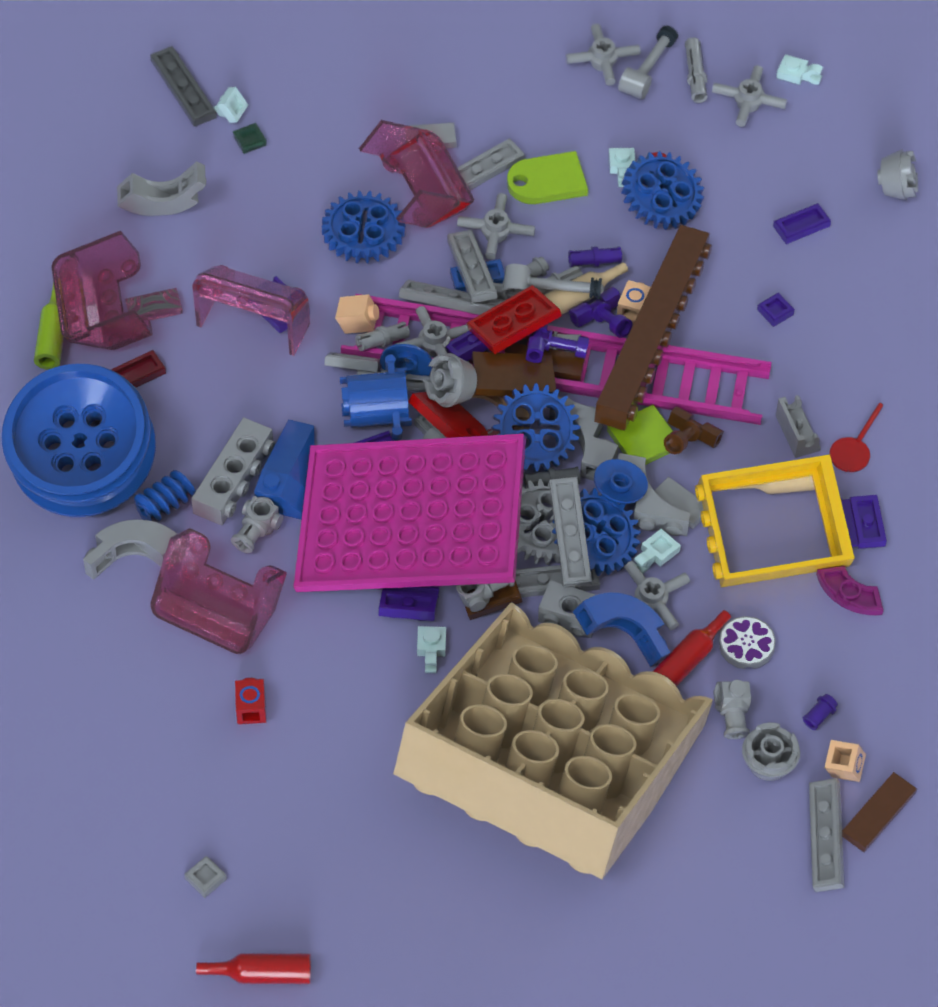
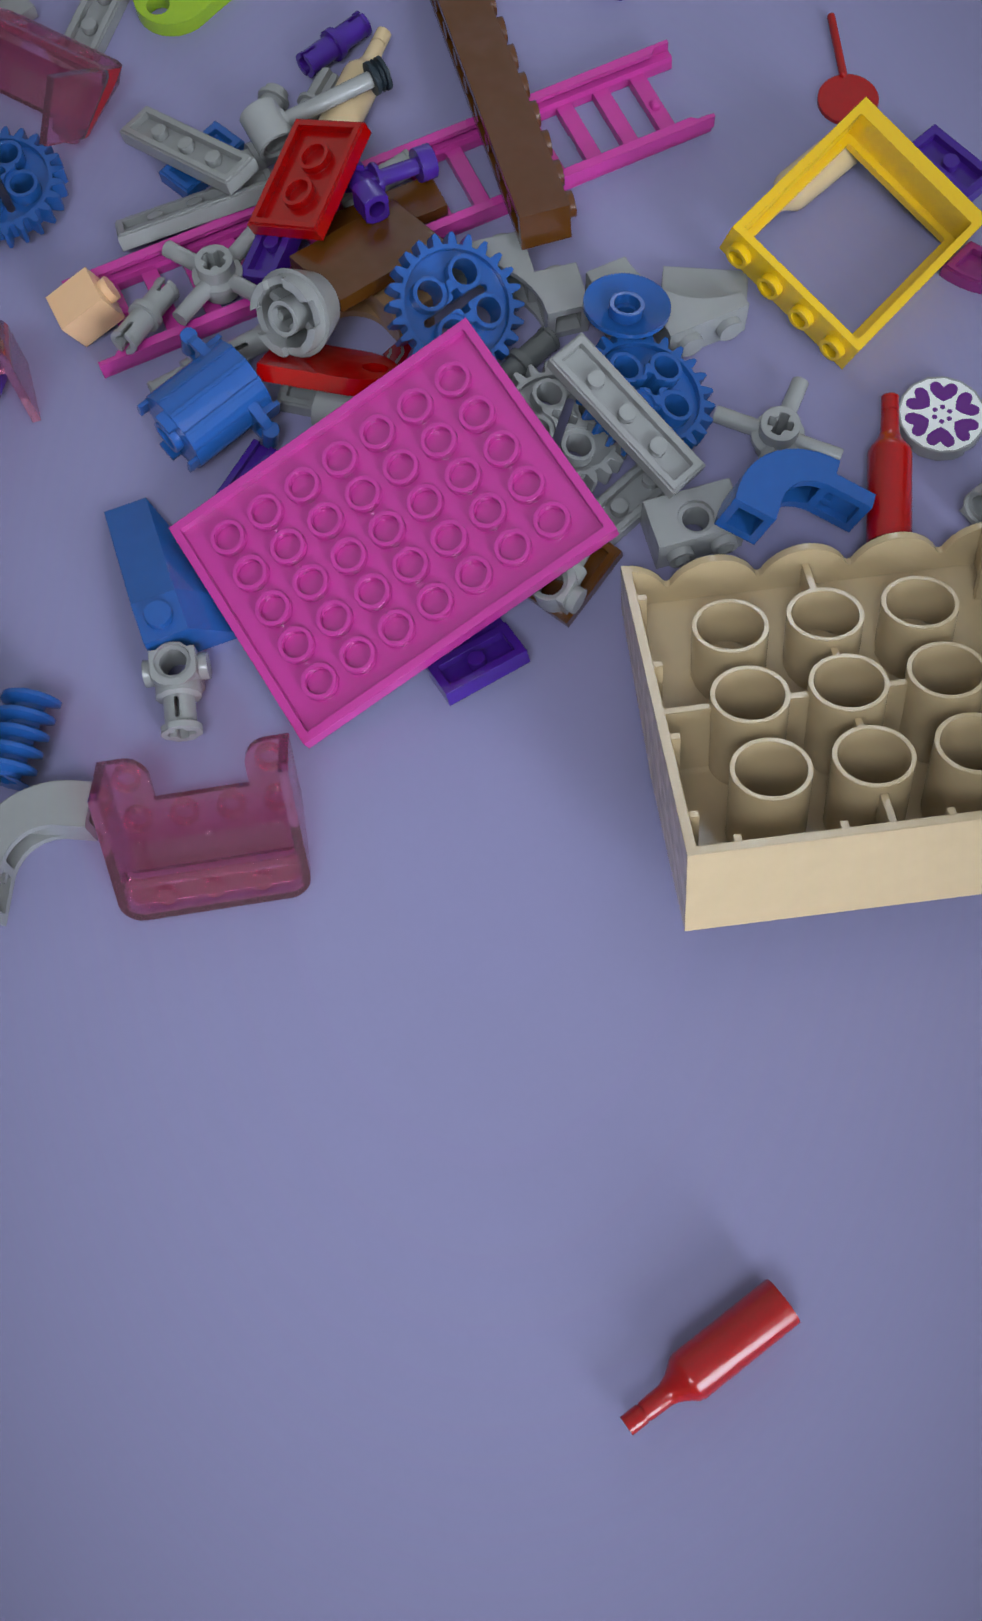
camera: 30 degrees left, 15 degrees up
(205, 876) = (518, 1265): light grey tile -> none
(208, 500) = (69, 573): light grey brick -> none
(250, 701) = (375, 953): red brick -> none
(353, 362) = (131, 376): light grey tile -> none
(409, 356) = (209, 316): blue dish -> none
(431, 643) = (550, 696): light aqua plate -> none
(496, 226) = (175, 80): light grey bar -> none
(601, 311) = (399, 107): dark purple bar -> none
(632, 299) = (434, 70): light nougat brick -> none
(643, 436) = (599, 234): lime tile -> none
(657, 549) = (732, 369): light aqua plate -> none
(689, 431) = (643, 191): reddish brown bar -> none
(796, 427) = (761, 105): light grey hinge -> none

